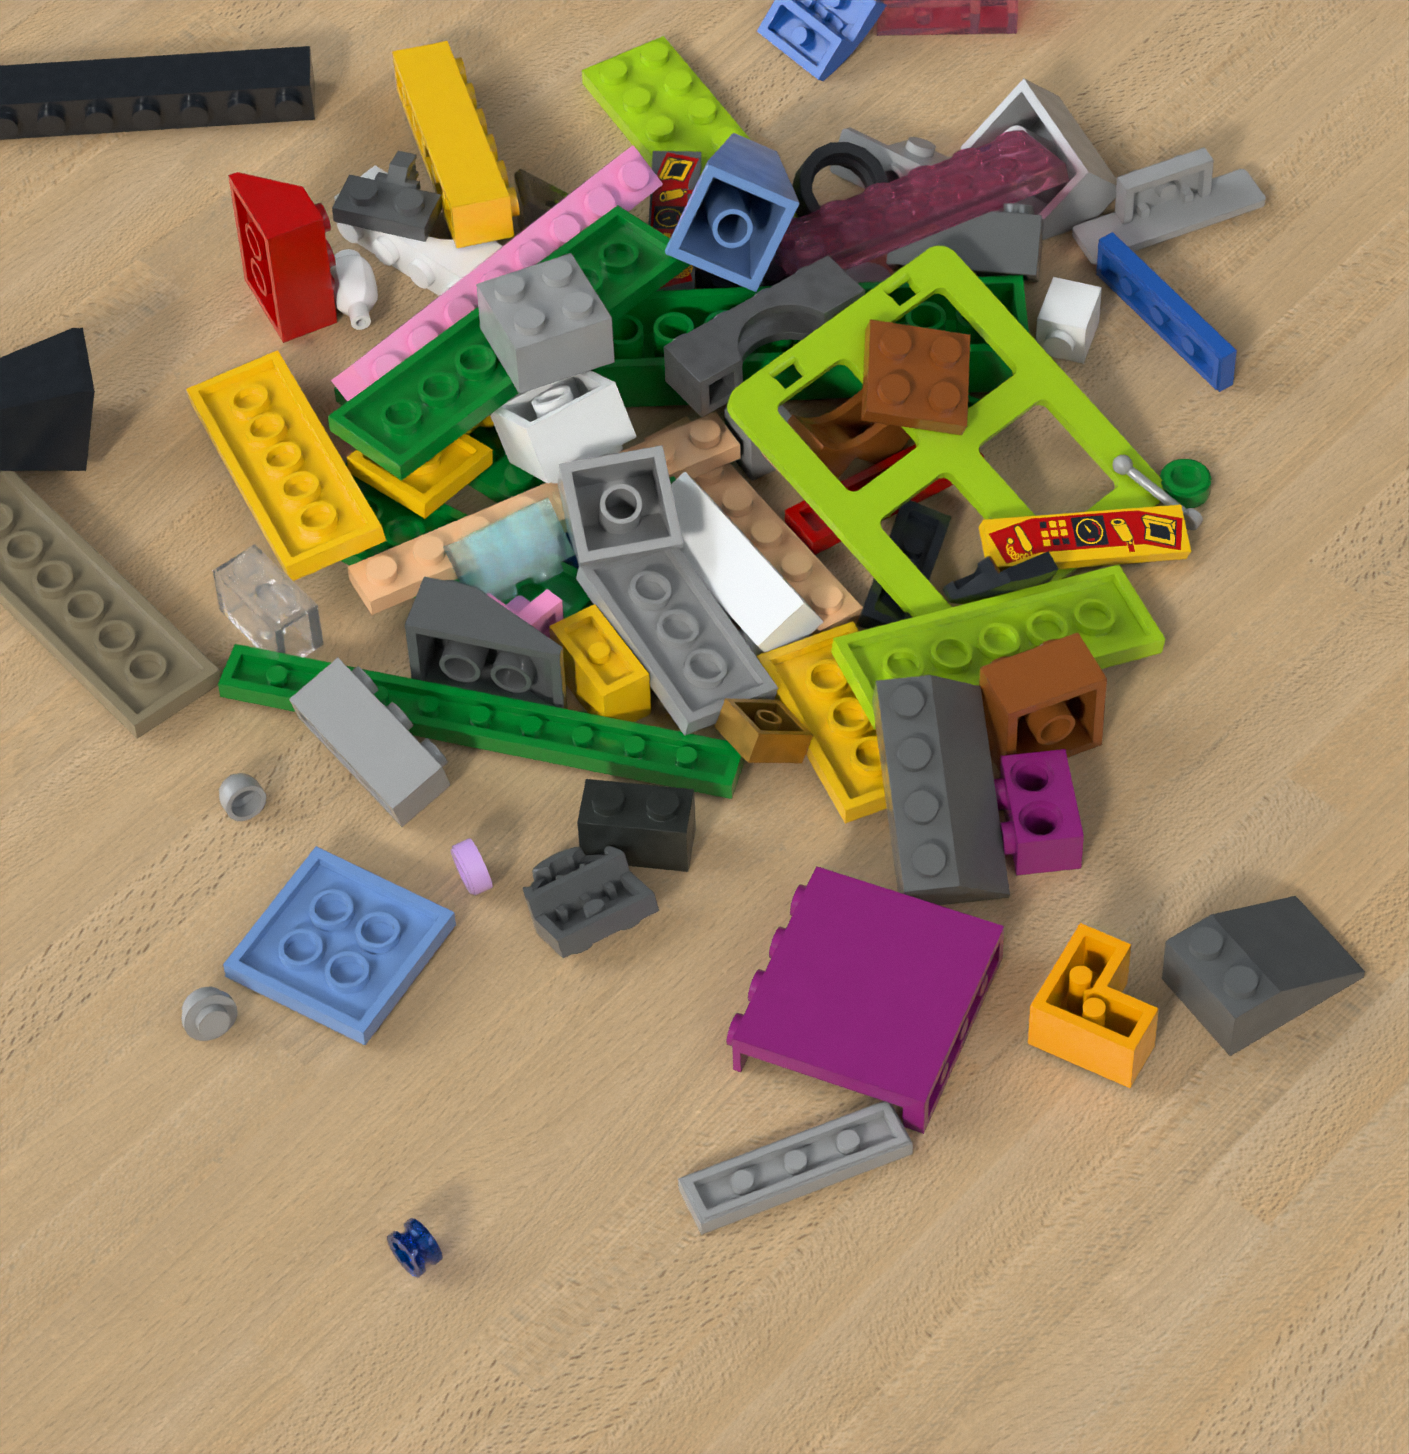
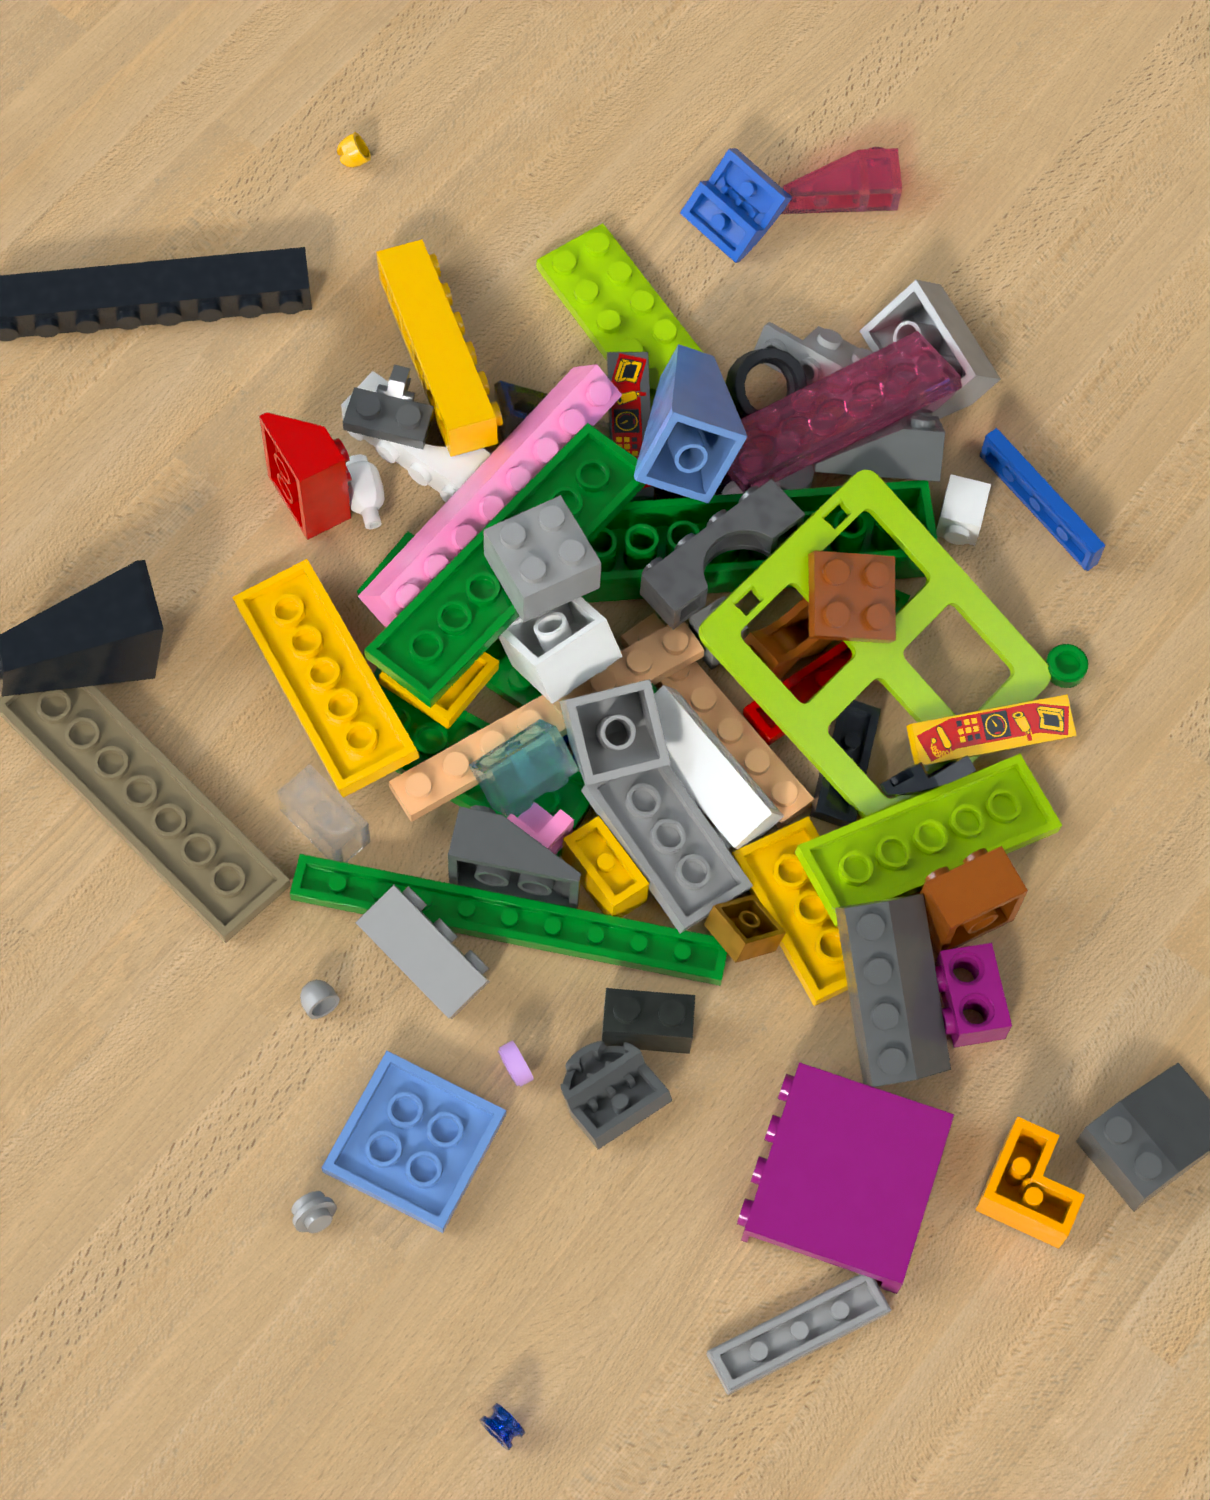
camera: 10 degrees left, 15 degrees up
(1123, 465) = (1019, 658): light grey hinge -> none
(1170, 202) = (1037, 392): light grey bracket -> none

